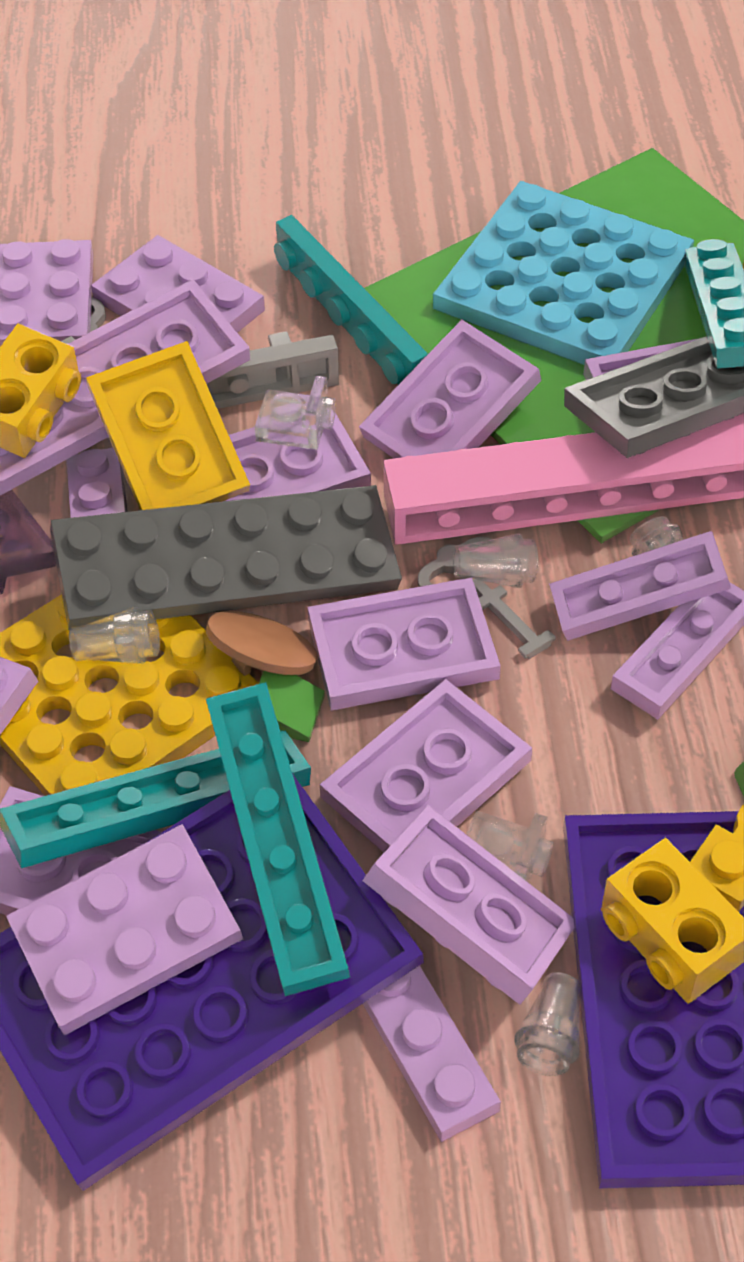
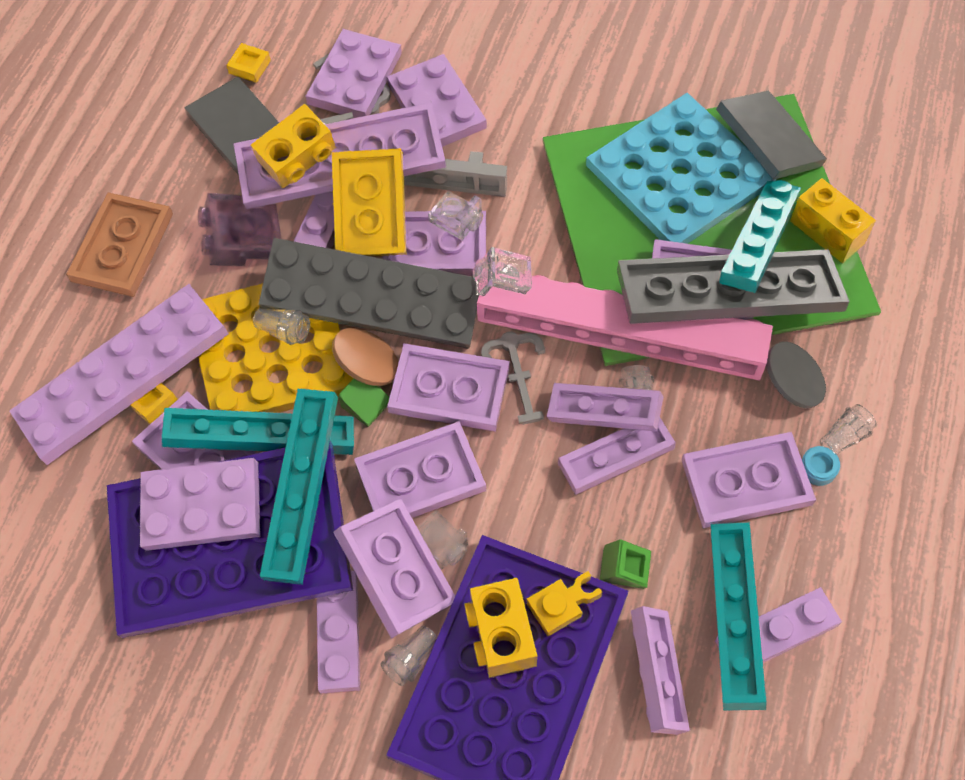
camera: 25 degrees right, 10 degrees up
(346, 301) = (533, 146): teal plate -> none
(414, 449) = (503, 271): none -> clear bracket
(452, 397) = (561, 234): lavender plate -> none
(499, 561) = (531, 355): clear cone -> none
(657, 195) = (771, 134): none -> dark grey tile

